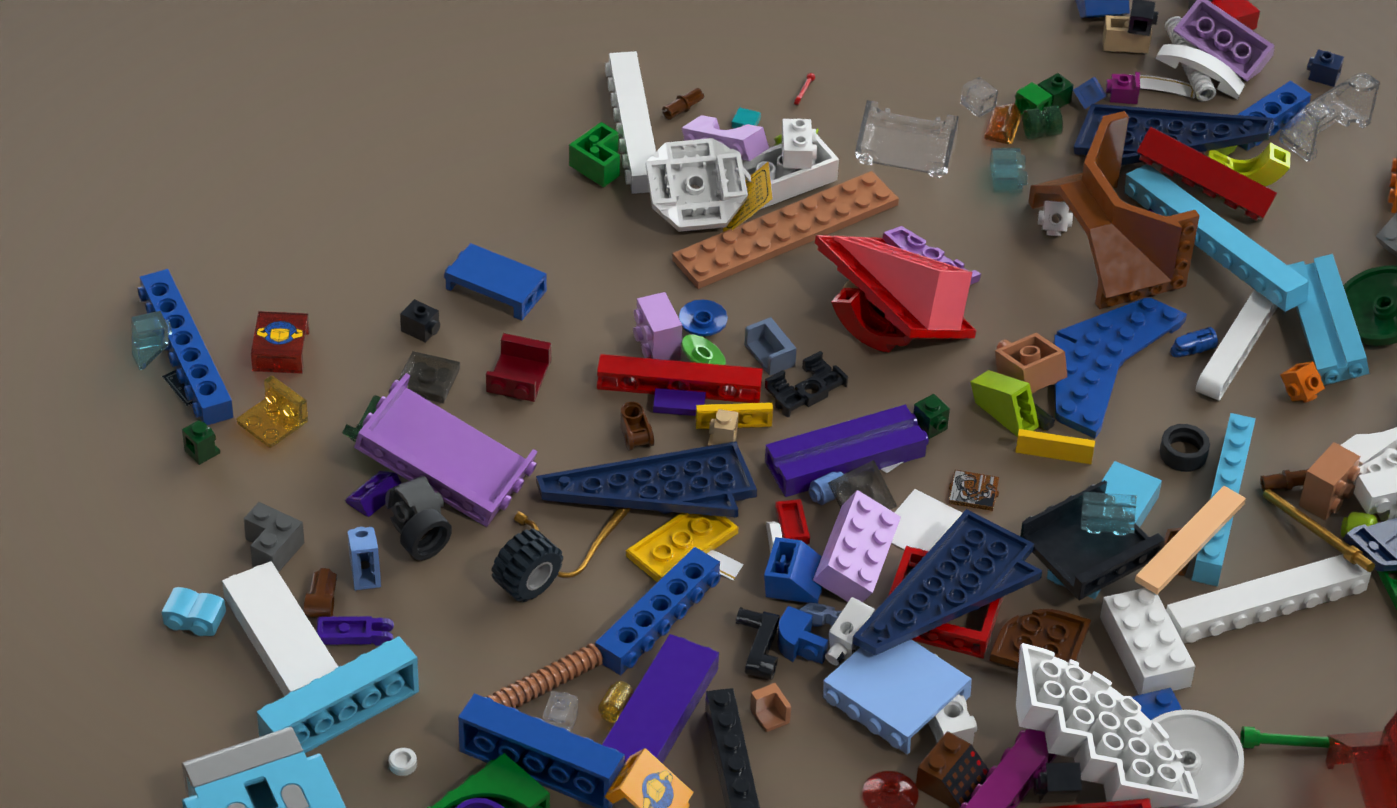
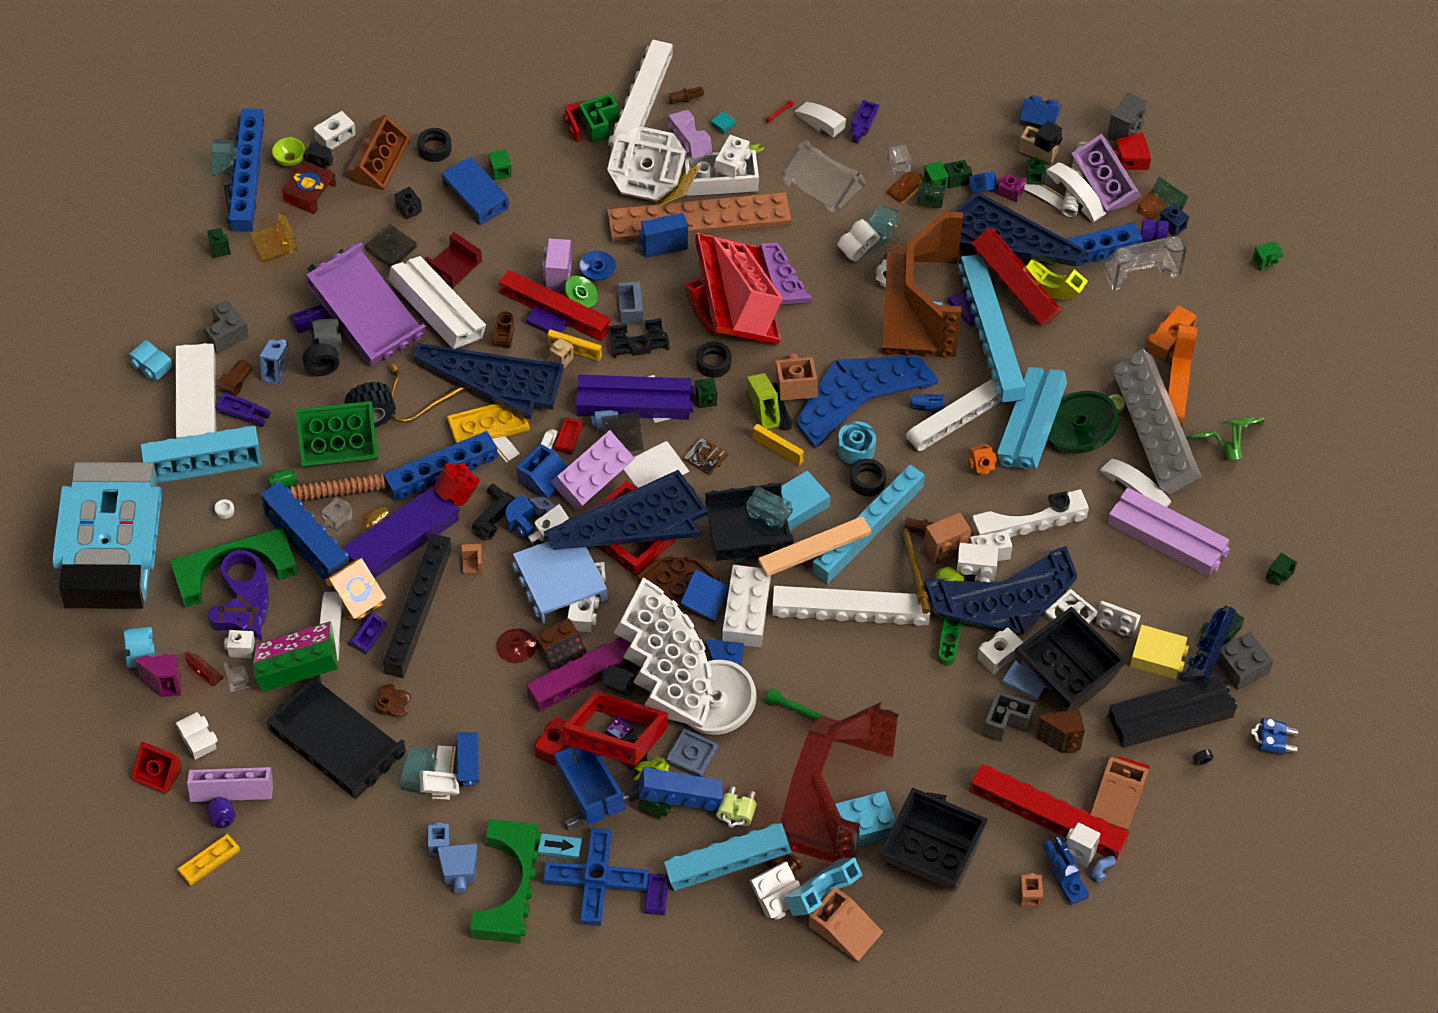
camera: 25 degrees right, 10 degrees up
(229, 303) = (287, 147): none -> lime piece
(271, 300) = (319, 155): none -> black brick
(273, 269) = (334, 130): none -> white brick
(345, 276) = (378, 153): none -> dark orange slope
(410, 259) = (434, 134): none -> black tyre
(458, 696) = (285, 477): none -> green brick
(508, 242) = (500, 164): none -> green brick
(508, 614) = (336, 434): none -> green slope
(531, 420) = (436, 302): none -> white brick
(565, 171) = (570, 115): none -> red bracket
(698, 621) = (456, 483): none -> red brick
(765, 257) = (663, 235): none -> blue brick
(859, 80) = (821, 118): none -> white slope
(908, 68) = (863, 119): none -> dark purple hinge
(914, 364) = (713, 348): none -> black tyre
(996, 193) = (858, 240): none -> white brick
(1089, 646) = (704, 595): none -> blue tile
(1138, 58) = (1035, 166): none -> dark green brick
(1148, 412) = (856, 442): none -> medium azure brick
(1289, 58) = (1150, 206): none -> clear orange slope
(1301, 41) = (1168, 196): none -> clear green tile
(1316, 82) = (1154, 230): none -> dark purple wheel

